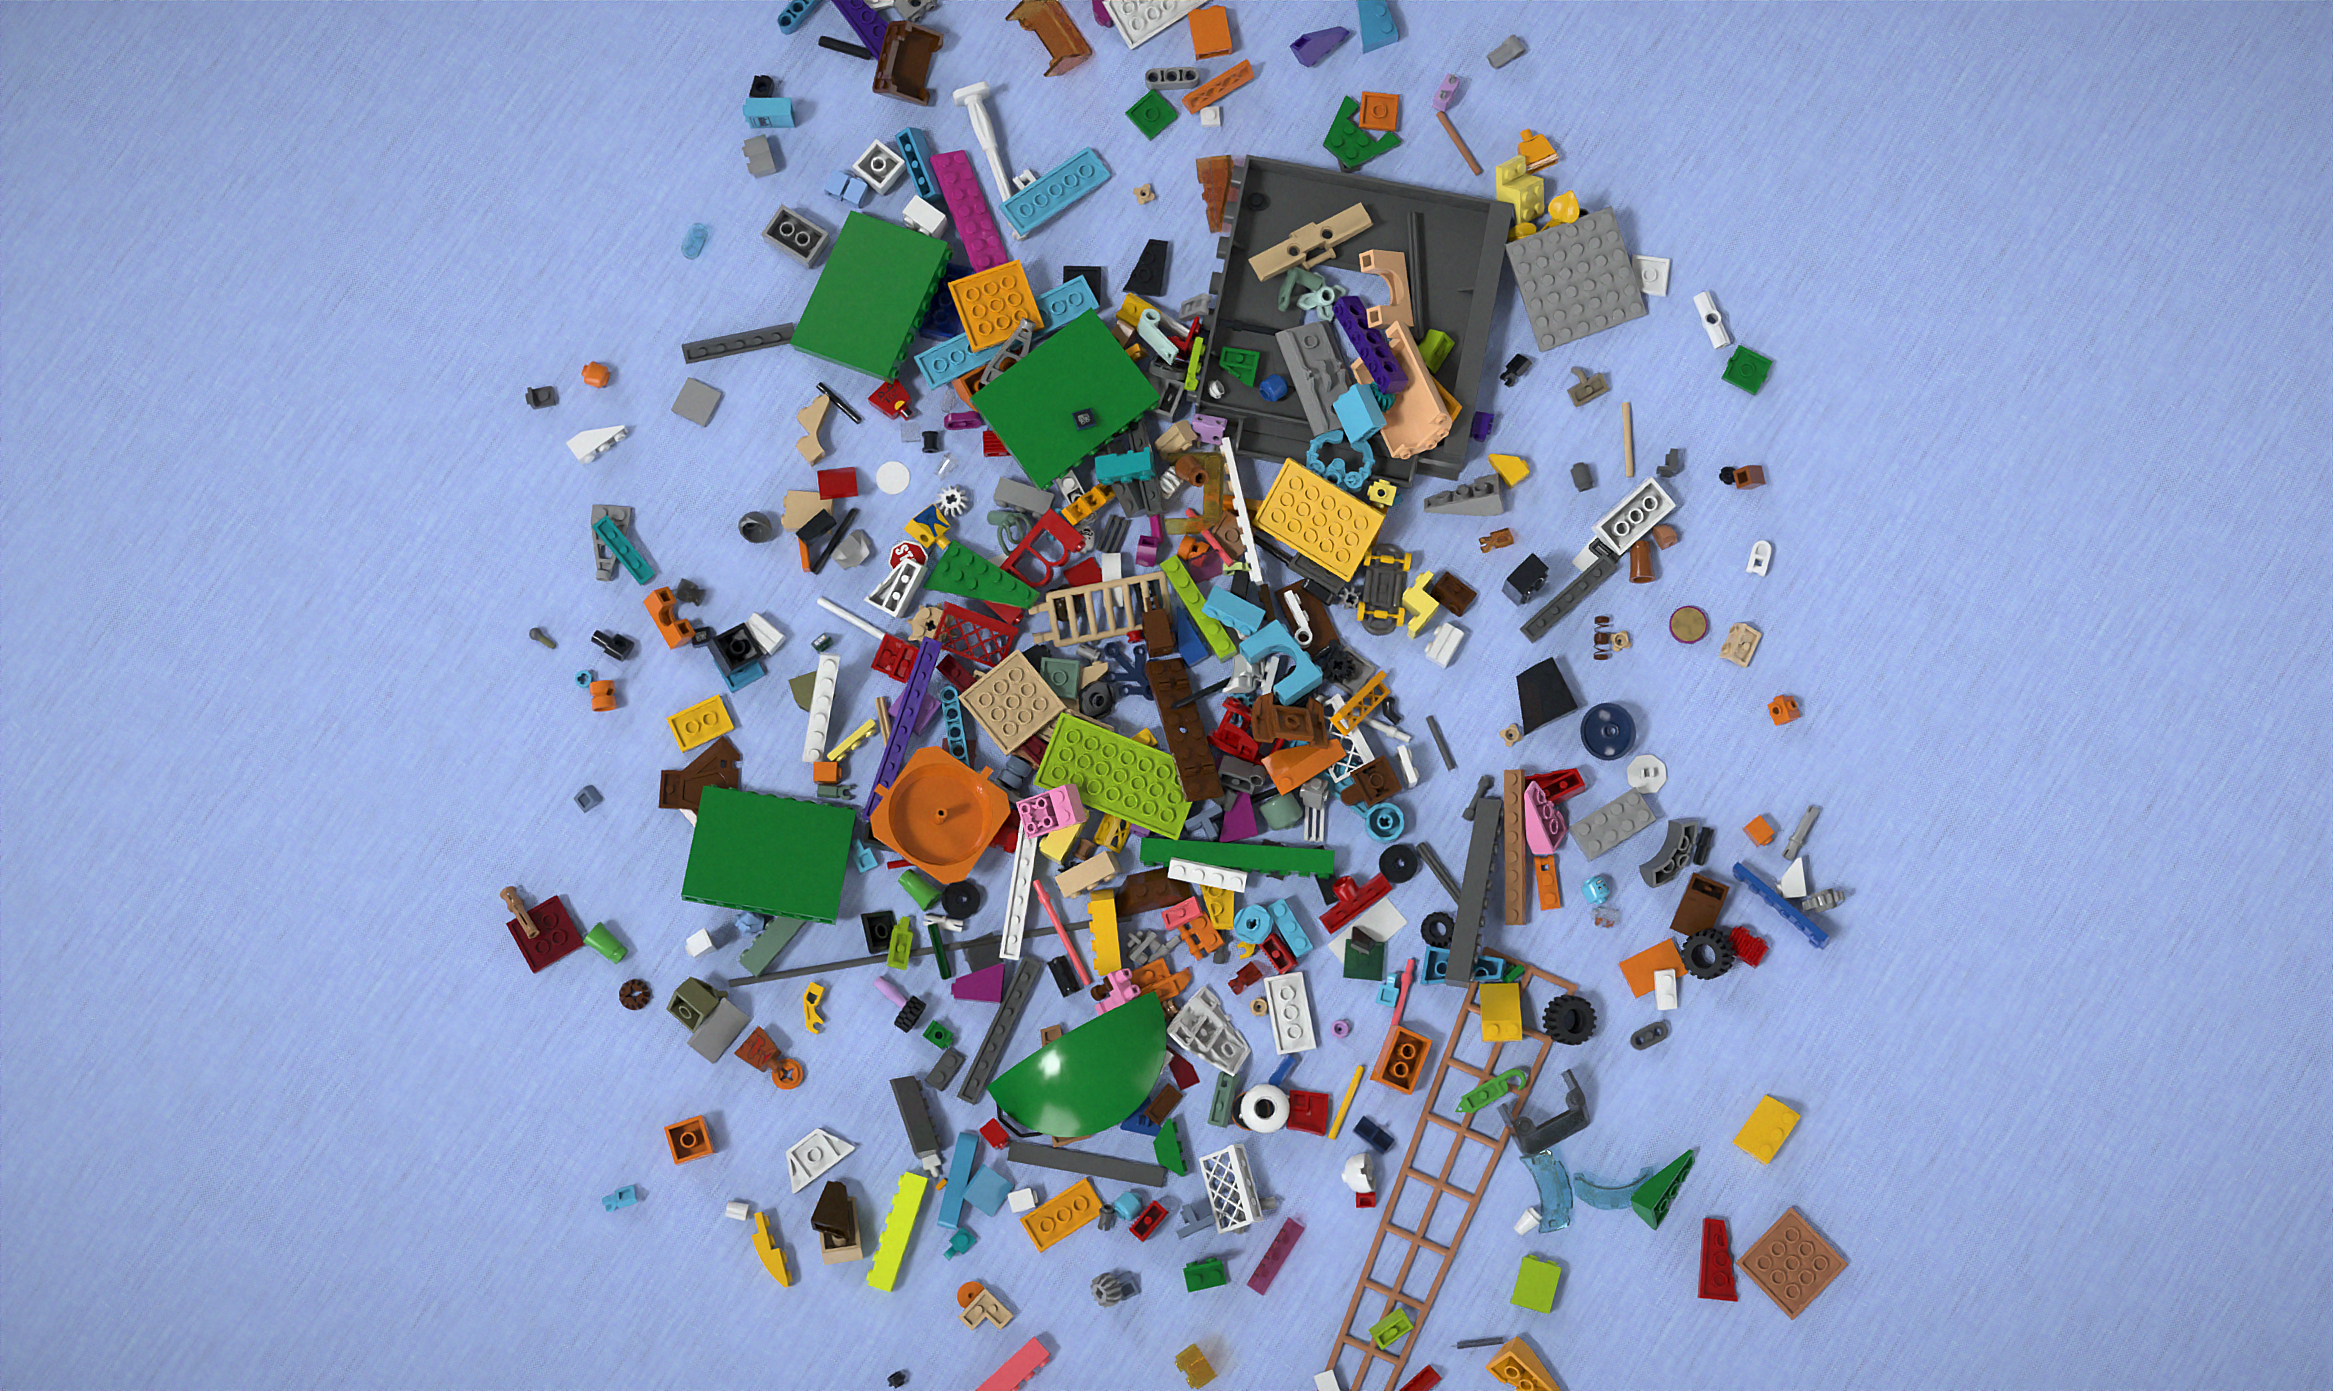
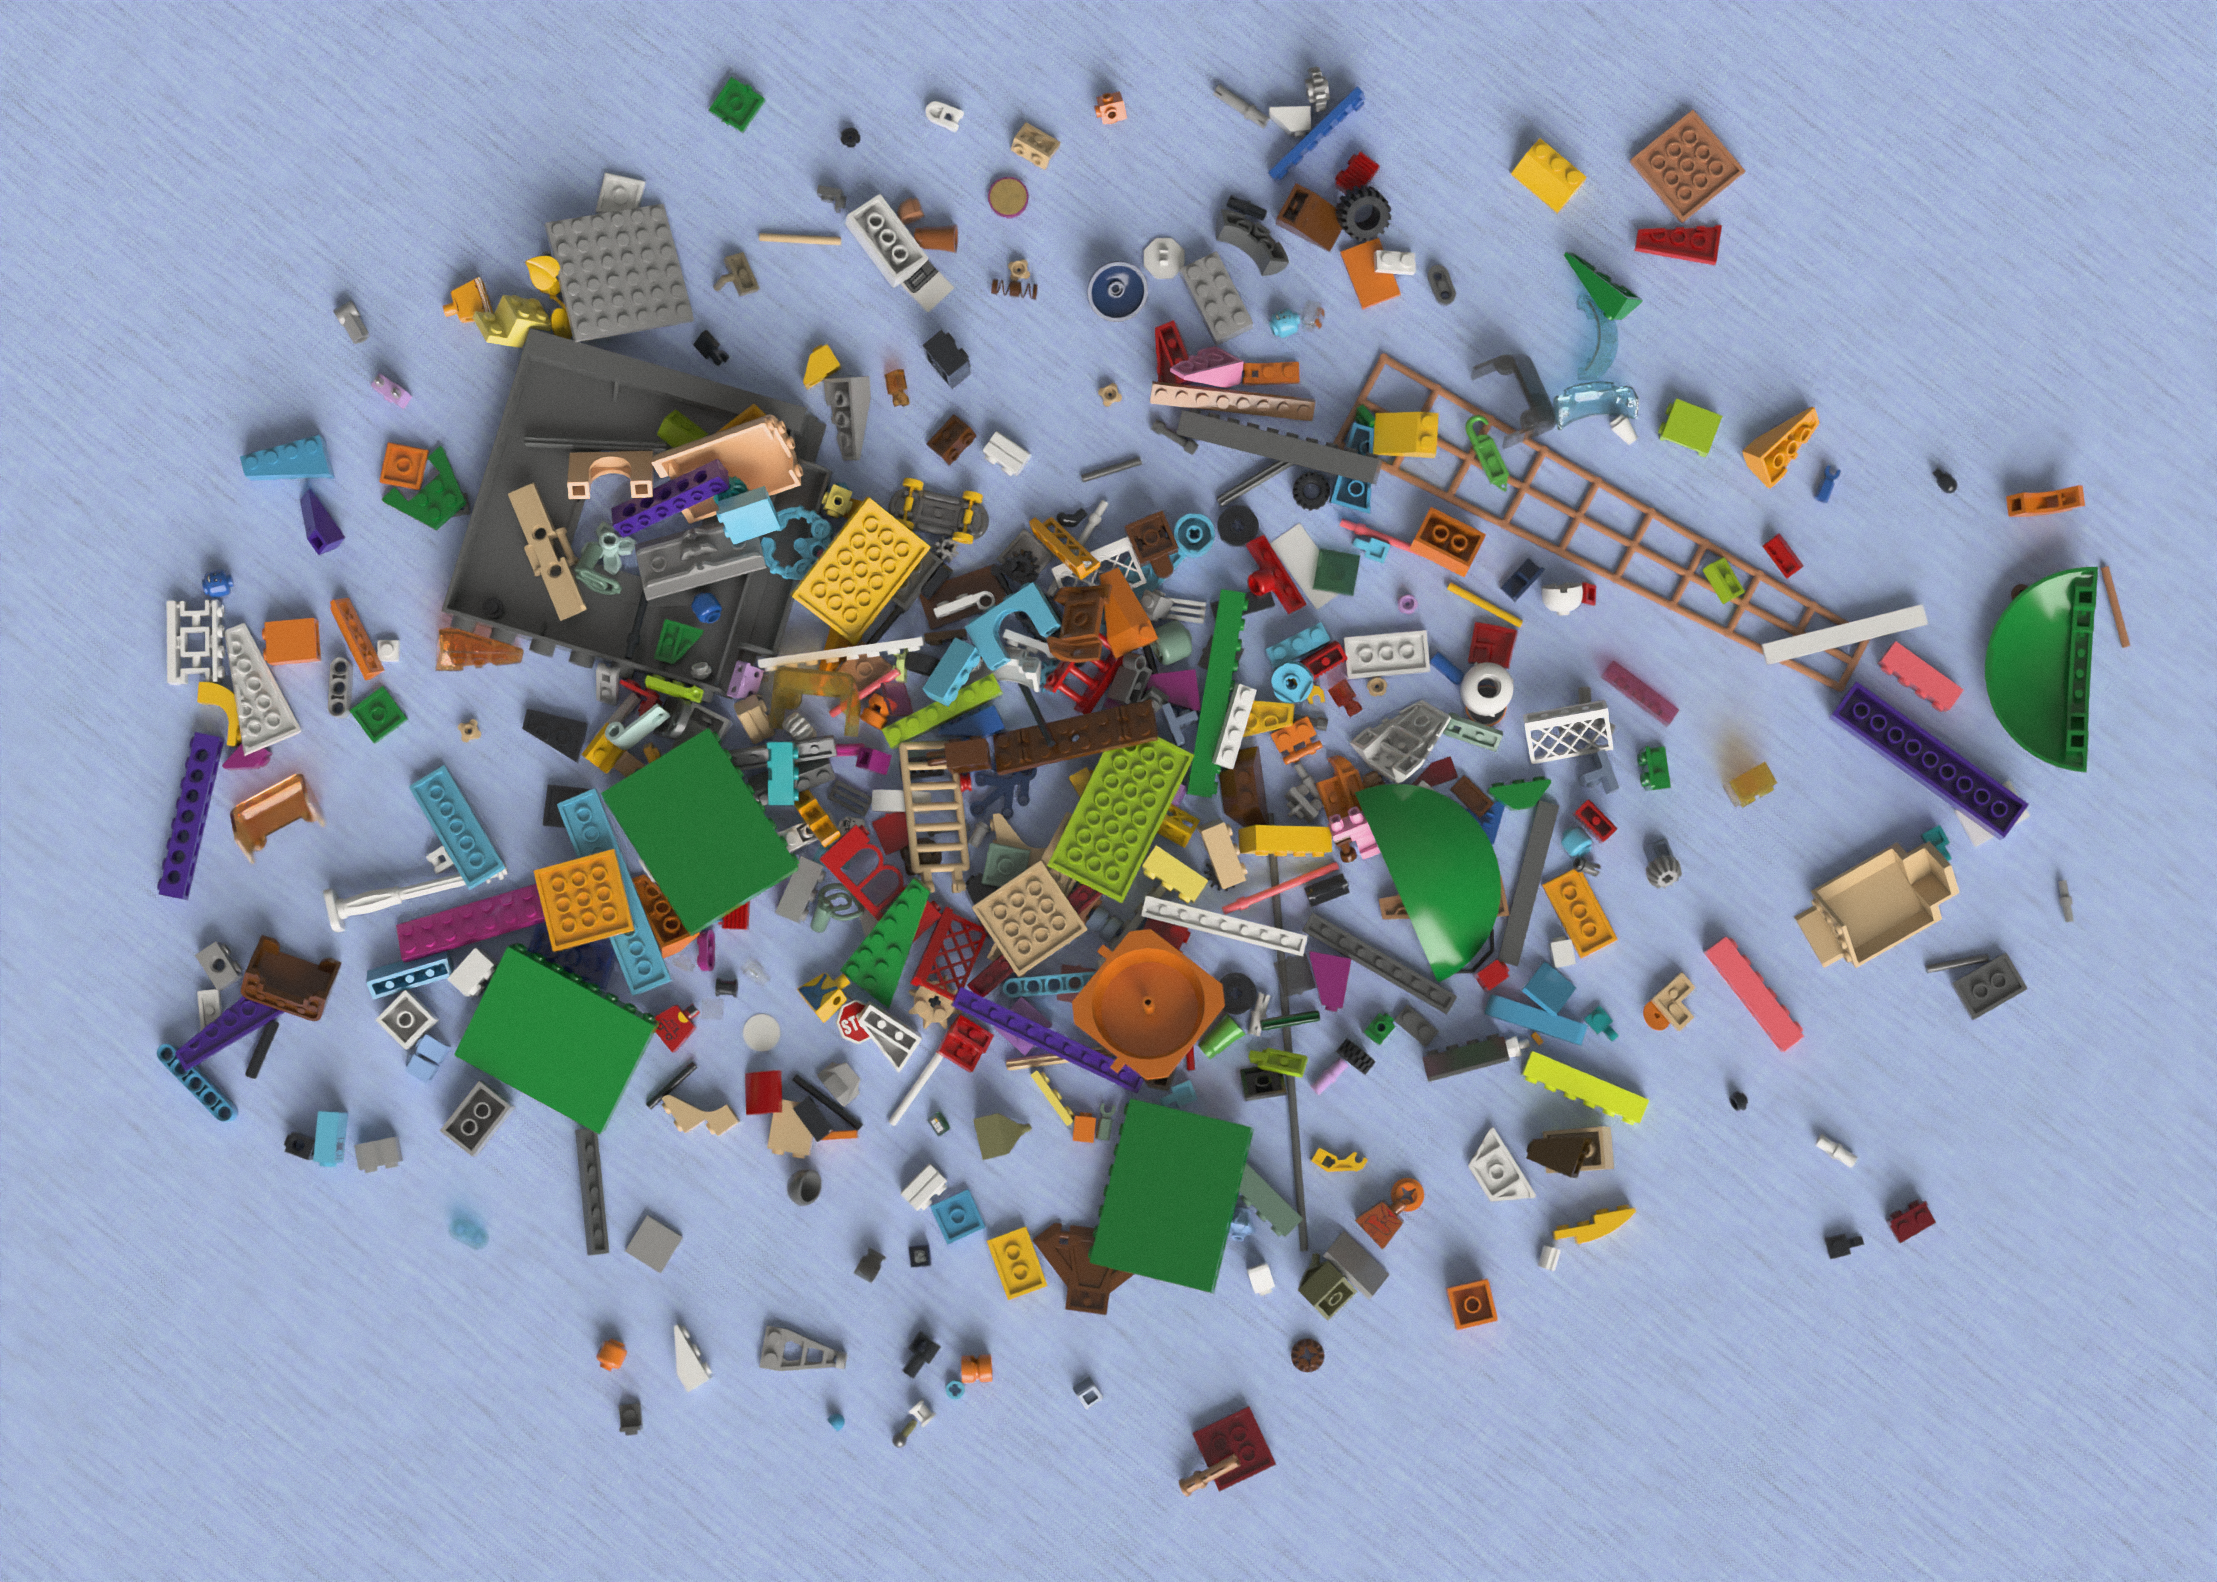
camera: 85 degrees left, 5 degrees up
(548, 576) = (837, 1421): none -> dark azure hinge
(560, 651) = (922, 1413): none -> white bush
(605, 943) = (1250, 1382): bright green plant -> none
(623, 550) = (815, 1335): teal plate -> none
(623, 1197) = (1526, 1381): medium azure plate -> none
(660, 607) = (886, 1298): orange arch -> none
(734, 649) = (940, 1218): black slope -> none
(820, 707) = (1015, 1126): white plate -> none
(949, 495) = (788, 971): white gear -> none
(992, 370) = (660, 910): light grey plate -> none
(1051, 811) = (1155, 884): bright pink slope -> none
(1083, 419) = (726, 812): slope -> none
(1083, 849) = (1193, 857): medium nougat bush -> none
(1090, 692) = (1026, 835): black plate -> none
(1181, 913) = (1271, 758): coral plate -> none
(1190, 470) = (793, 702): dark orange plant -> none
(1241, 740) = (1099, 672): red slope -> none
(1361, 941) = (1318, 571): pearl dark grey piece -> none
(1410, 773) = (1129, 507): white plate -> none
(1419, 604) = (961, 474): light yellow bracket -> none
(1459, 144) = (449, 384): nougat bar -> none
(1479, 1341) = (1744, 494): dark grey piece -> none
(1481, 426) = (771, 388): dark purple brick -> none
(1543, 696) = (1071, 355): black wedge -> none
(1568, 598) = (968, 318): dark grey plate -> none
(1582, 476) = (837, 290): dark grey brick -> none
(1583, 1020) = (1425, 351): black tyre -> none
(1715, 331) = (665, 139): white piece -> none
(1749, 477) = (856, 115): dark orange brick -> none
(1759, 831) = (1236, 148): orange brick -> none

